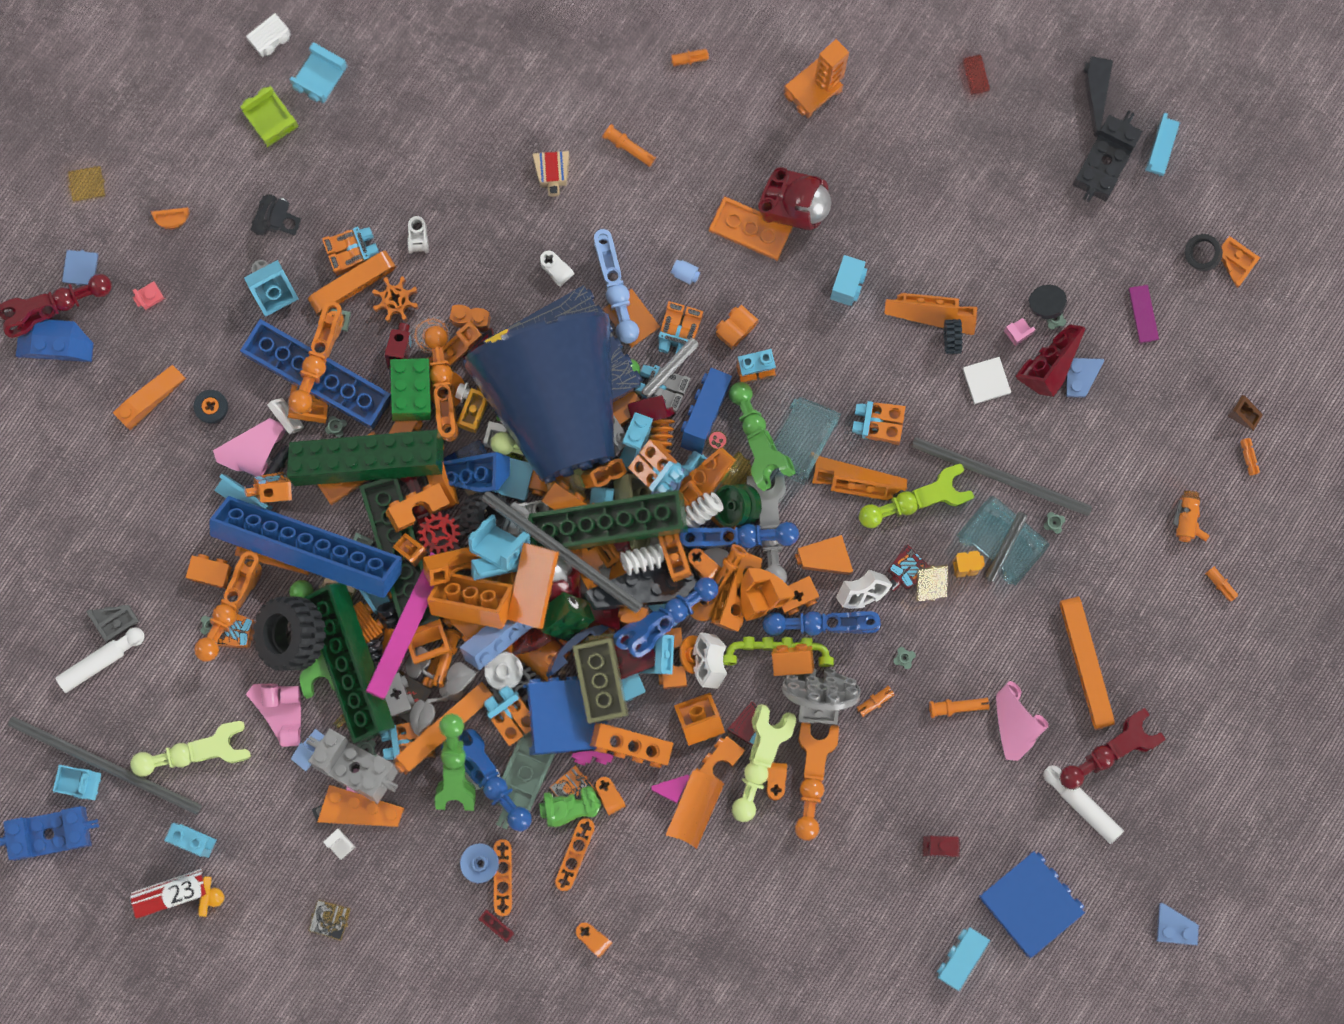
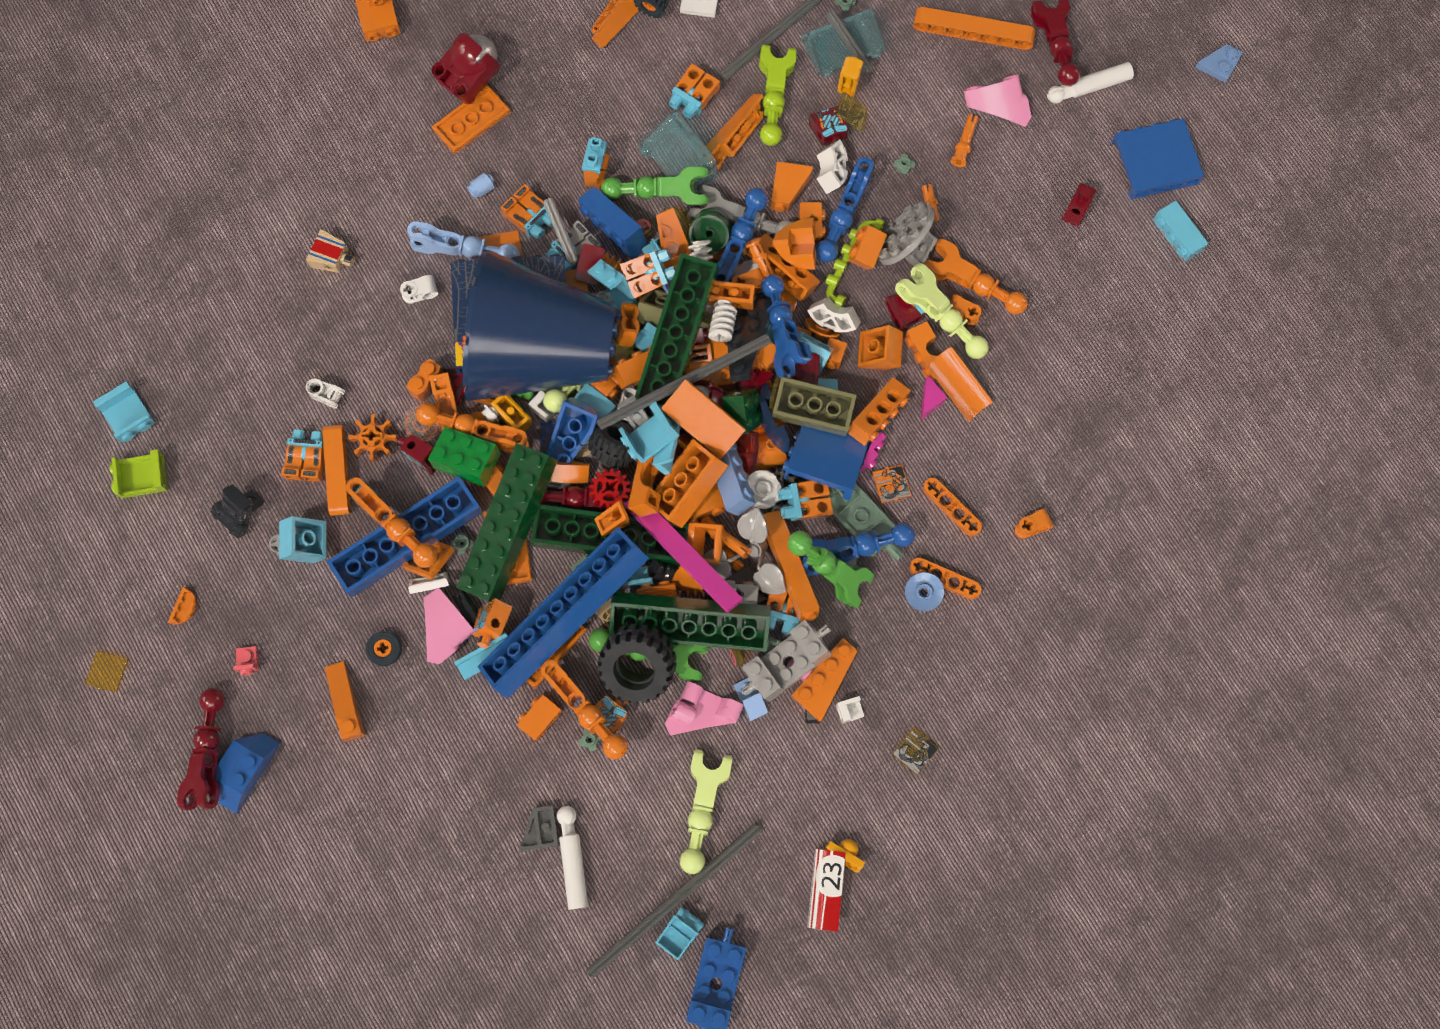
camera: 70 degrees left, 5 degrees down
(79, 267) = (183, 713): medium blue piece -> none
(190, 840) = (787, 844): medium azure panel -> none
(269, 35) = (63, 440): white brick -> none
(430, 498) = (575, 482): orange arch -> none
(496, 926) = (986, 603): dark red piece -> none
(564, 809) = (909, 495): bright green animal -> none
(611, 798) = (915, 453): orange piece -> none
(622, 141) = (337, 185): orange pin -> none
(689, 57) = (293, 100): orange axle -> none
(736, 326) = (552, 166): orange brick -> none
(846, 286) = (560, 58): medium azure brick -> none

